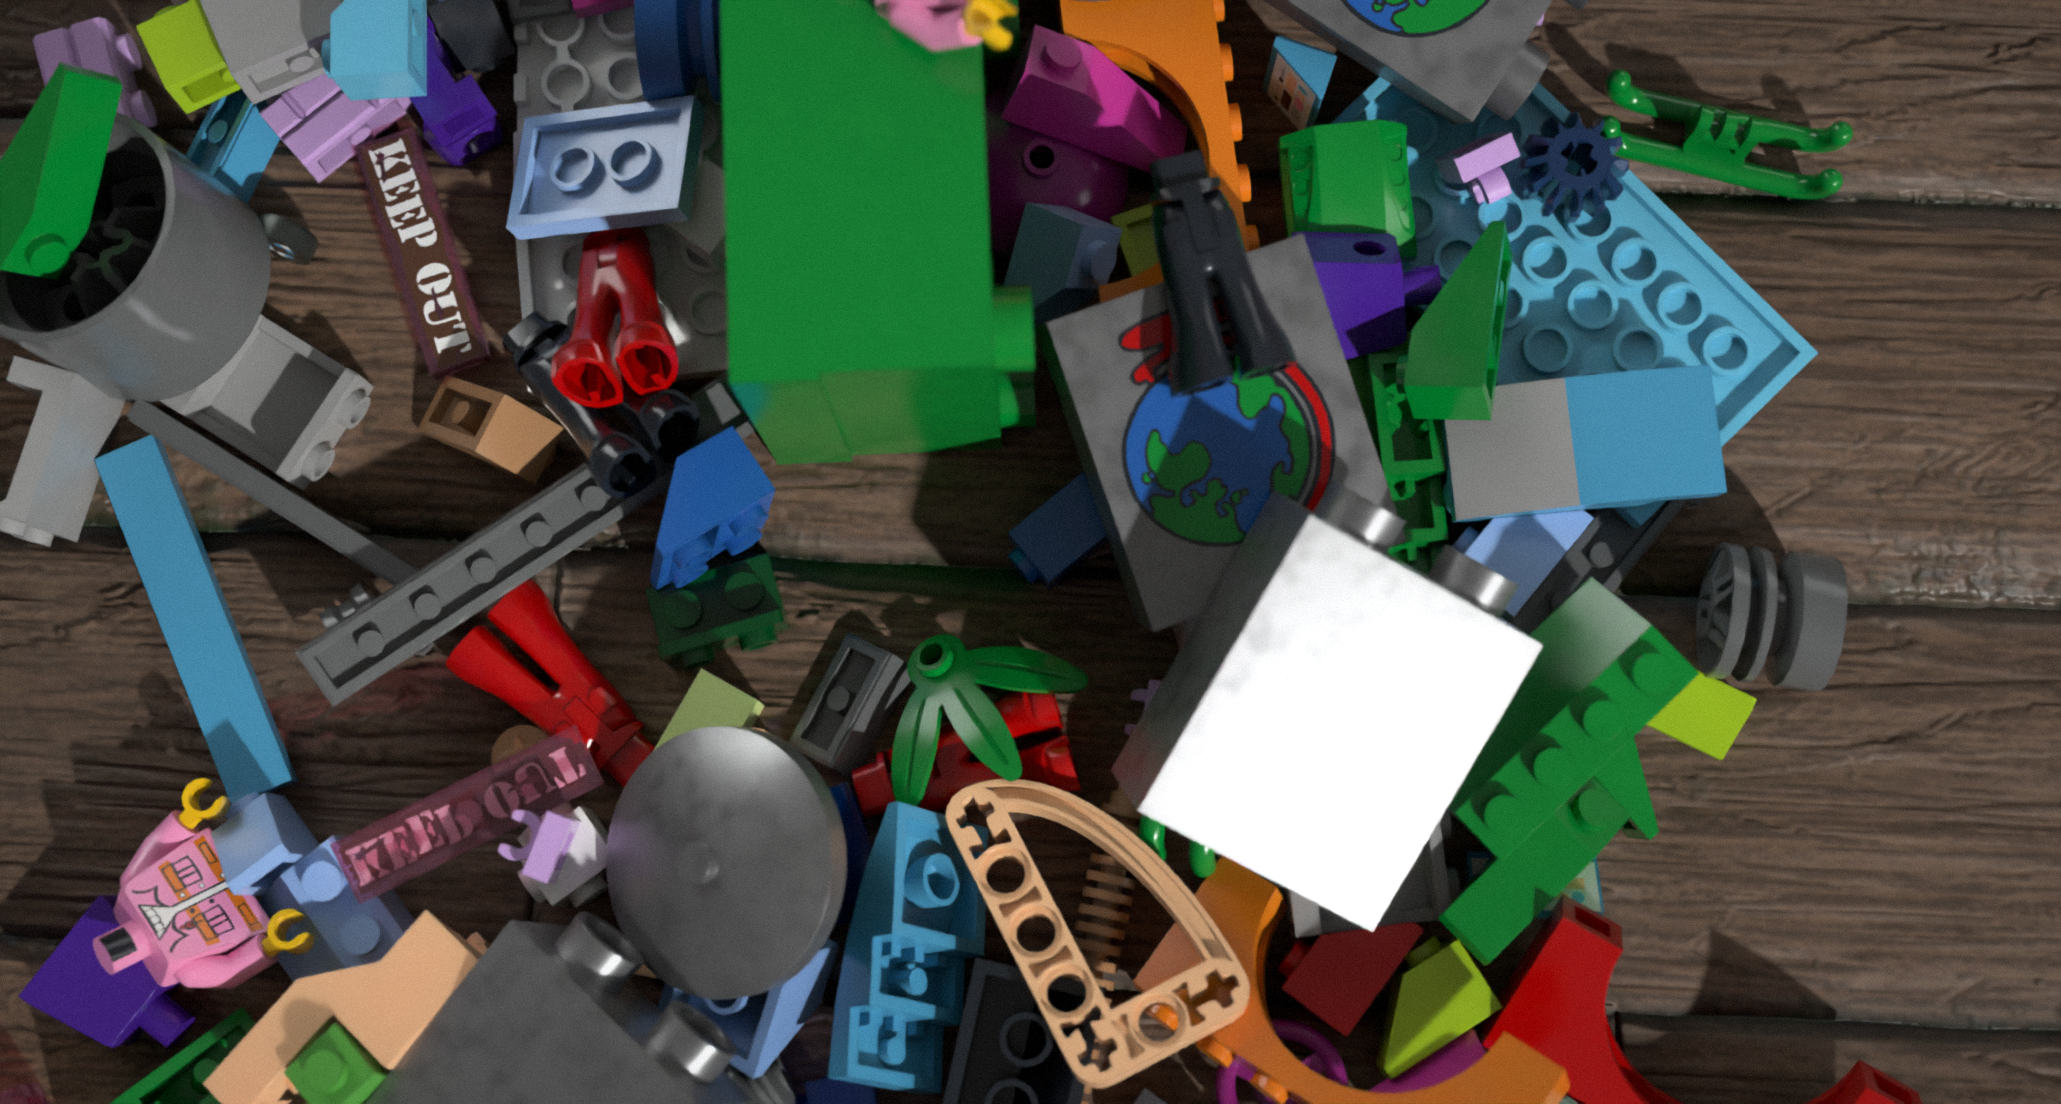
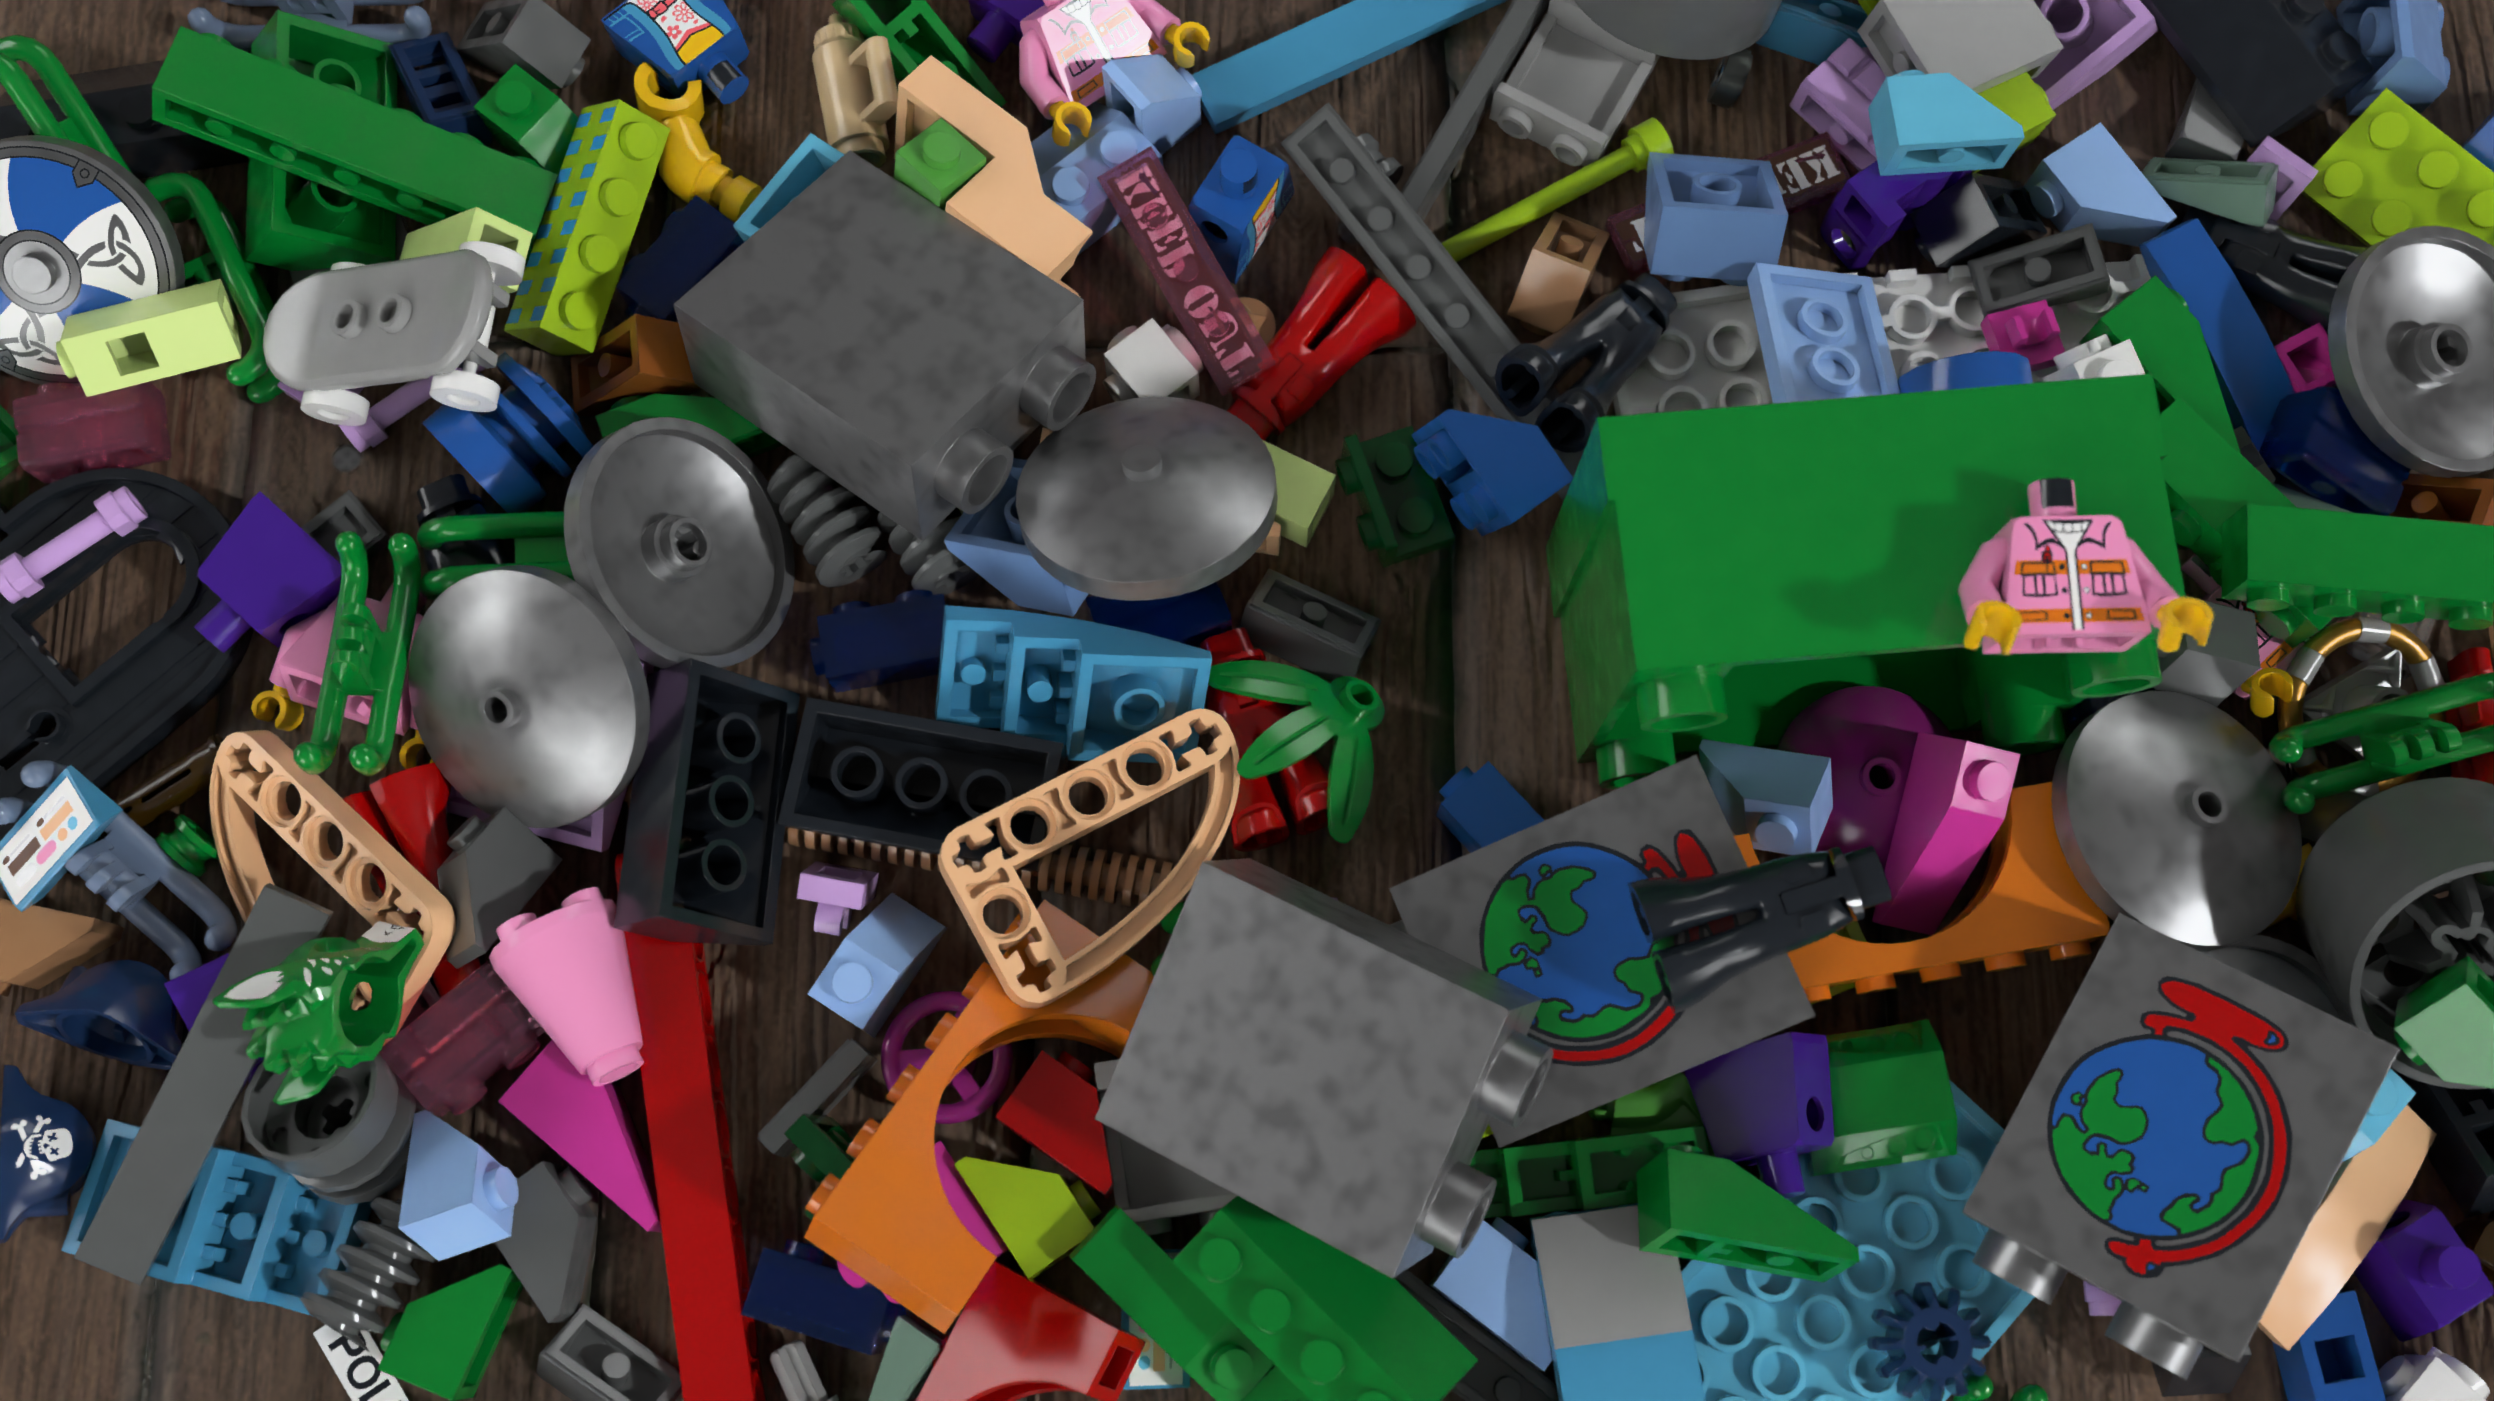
camera: 85 degrees right, 5 degrees down
(357, 332) = (1633, 154): none -> lime piece
(391, 755) = (1243, 199): none -> blue torso
(444, 269) = (1711, 217): none -> medium blue slope
(547, 846) = (1158, 342): lavender tile -> none
(613, 283) = (1667, 366): red piece -> none
(1298, 79) = (1994, 1044): slope -> none
(1480, 165) = (1922, 1239): lavender tile -> none

